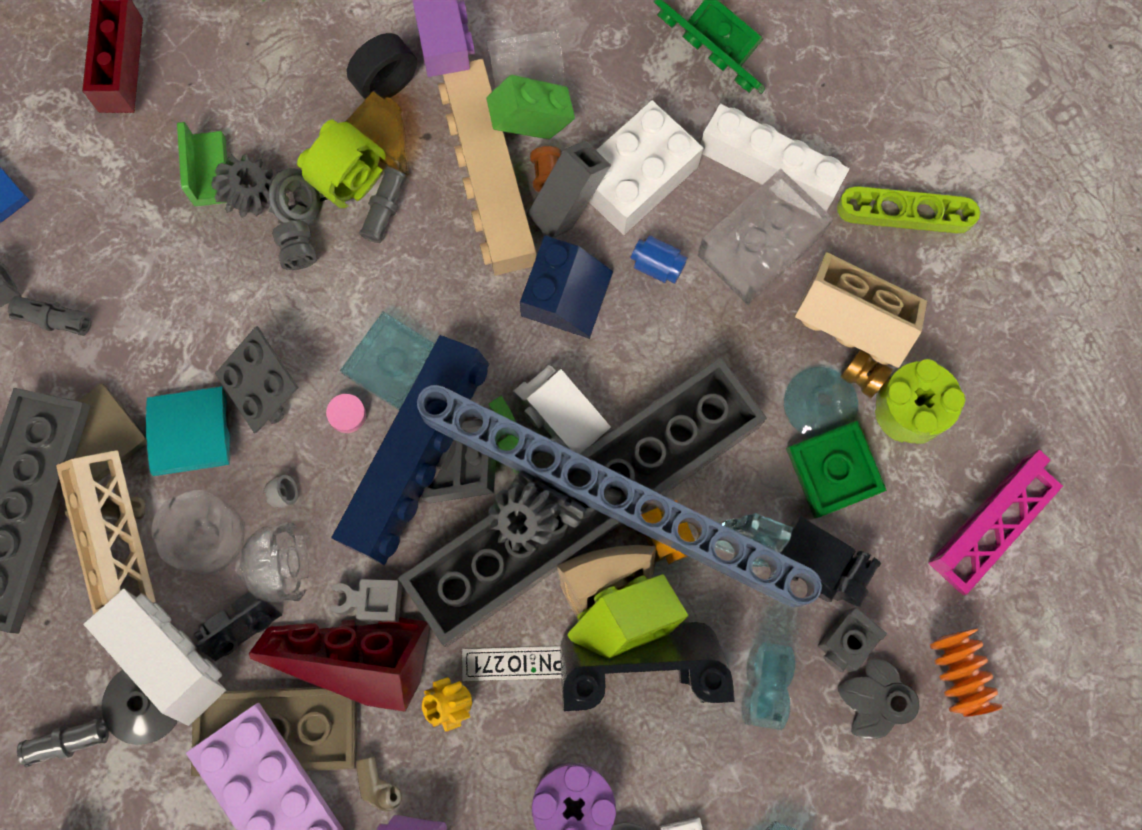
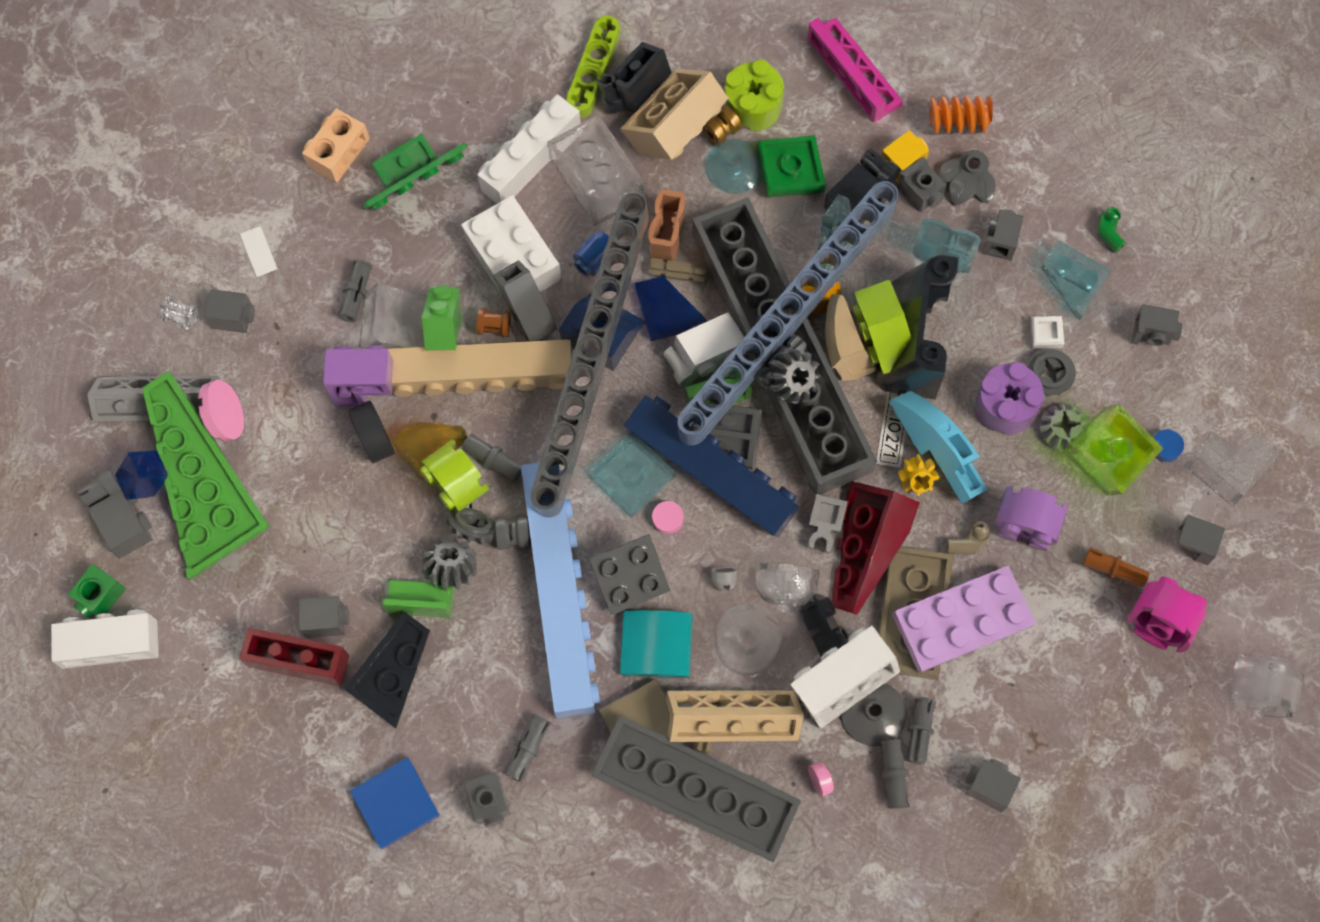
camera: 70 degrees left, 5 degrees down
(45, 652) = (821, 778): none -> bright pink tile
(118, 155) = (390, 669): none -> black wing
(121, 765) = (920, 730): none -> dark grey axle
(167, 72) = (322, 617): none -> dark grey brick
(233, 308) = (561, 603): none -> light blue brick
(495, 730) = (937, 433): none -> medium azure slope
(527, 282) = (593, 366): none -> dark grey beam
(530, 19) = (354, 290): none -> dark grey pin
(609, 357) = (665, 309): none -> clear blue wing
(662, 360) = (678, 270): none -> dark tan axle
(703, 332) = (667, 225): none -> nougat brick
(807, 761) = (1003, 235): none -> dark grey brick
(889, 609) = (906, 151): none -> yellow brick
(903, 257) = (634, 79): none -> black hinge

